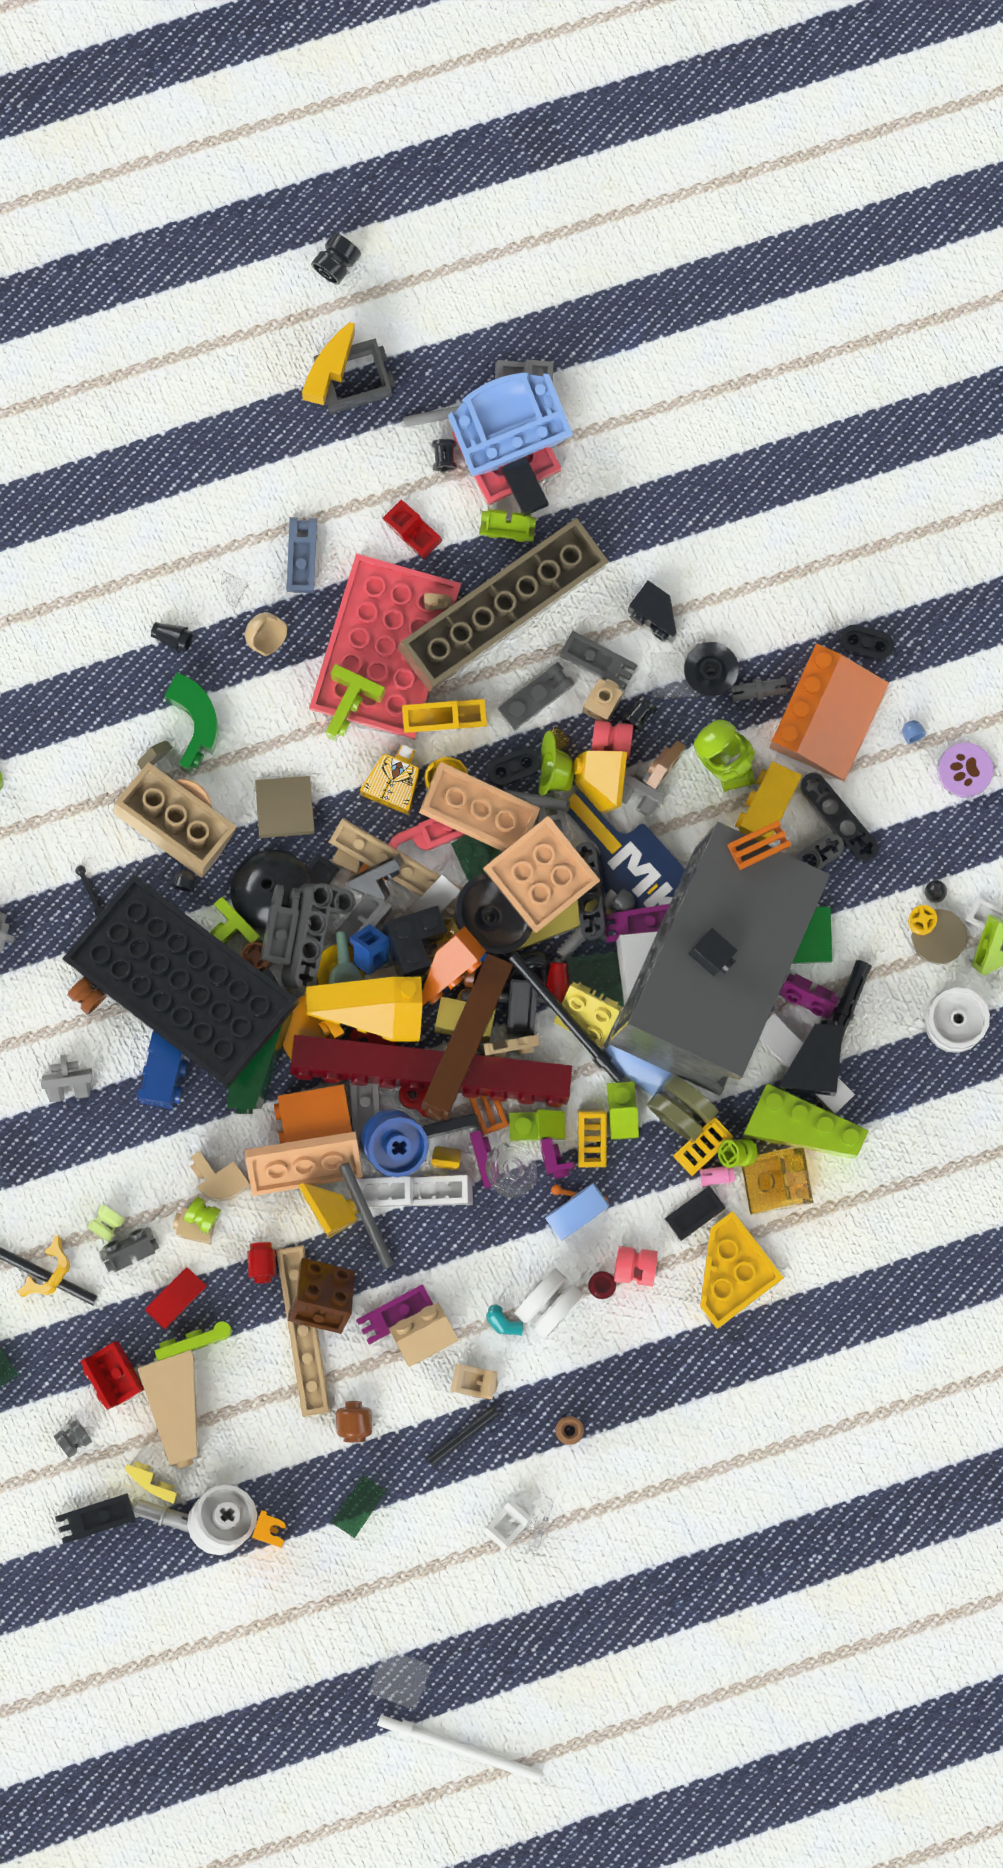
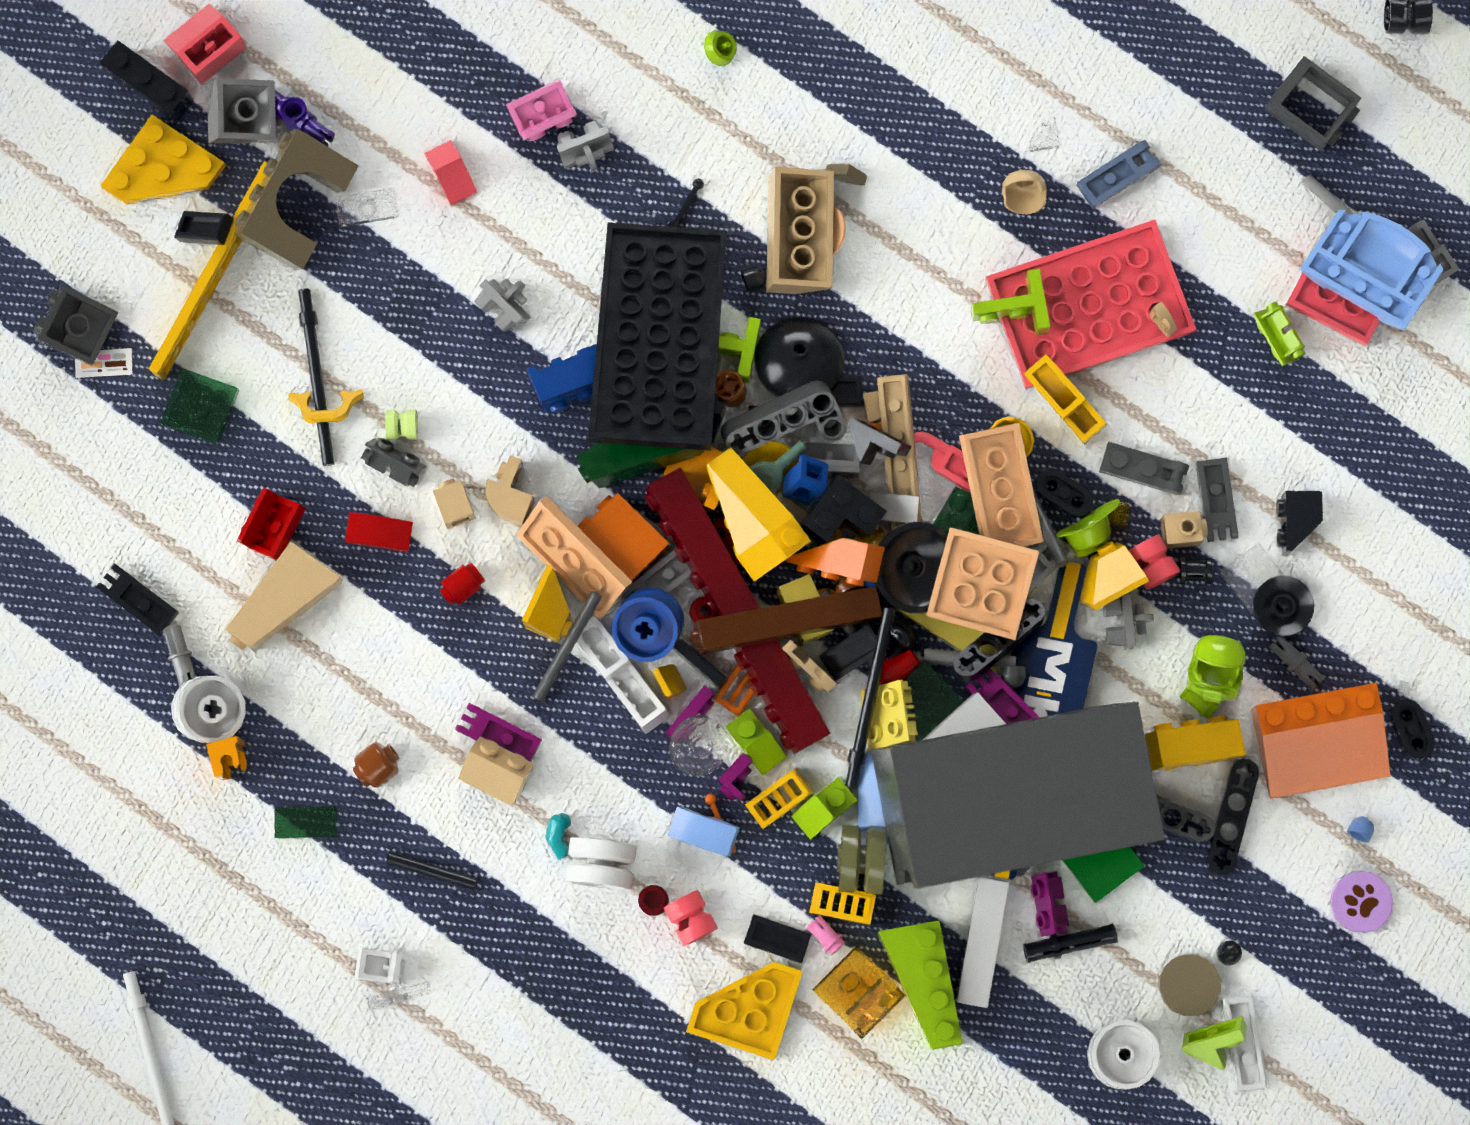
camera: 60 degrees right, 0 degrees up
(72, 1438) = (193, 529): dark grey wheel -> none
(84, 993) = (591, 263): dark orange wheel -> none
(145, 1479) = (200, 617): light yellow slope -> none
(173, 636) = (964, 117): black cone -> none
(194, 1341) = (352, 575): lime plate -> none
(196, 703) = (909, 194): green arch -> none
(204, 1216) = (464, 501): lime wheel -> none
(281, 927) = (767, 388): dark grey hinge -> none
(284, 807) = (882, 318): dark tan slope -> none
(303, 1340) = (427, 663): tan tile -> none
(323, 1296) = (469, 658): reddish brown bracket -> none
(329, 365) = (1305, 73): yellow slope -> none
(393, 781) = (974, 396): yellow torso -> none
(400, 1679) = (178, 966): clear piece -> none
(412, 529) = (1214, 253): red slope -> none
(440, 447) = (1311, 230): black bush -> none
(474, 1381) = (486, 846): tan bracket -> none
(502, 604) = (1203, 378): dark tan brick -> none
(524, 486) = (1325, 322): black tile -> none
(579, 1430) = (493, 958): medium nougat plate -> none
(664, 763) = (1169, 625): medium nougat plate -> none
(714, 953) = (1011, 781): black brick -> none
(737, 1153) = (858, 938): lime wheel -> none
(780, 835) = (1166, 766): orange tile -> none
(817, 1062) = (991, 951): black slope -> none
(927, 918) = (1196, 954): yellow wheel -> none

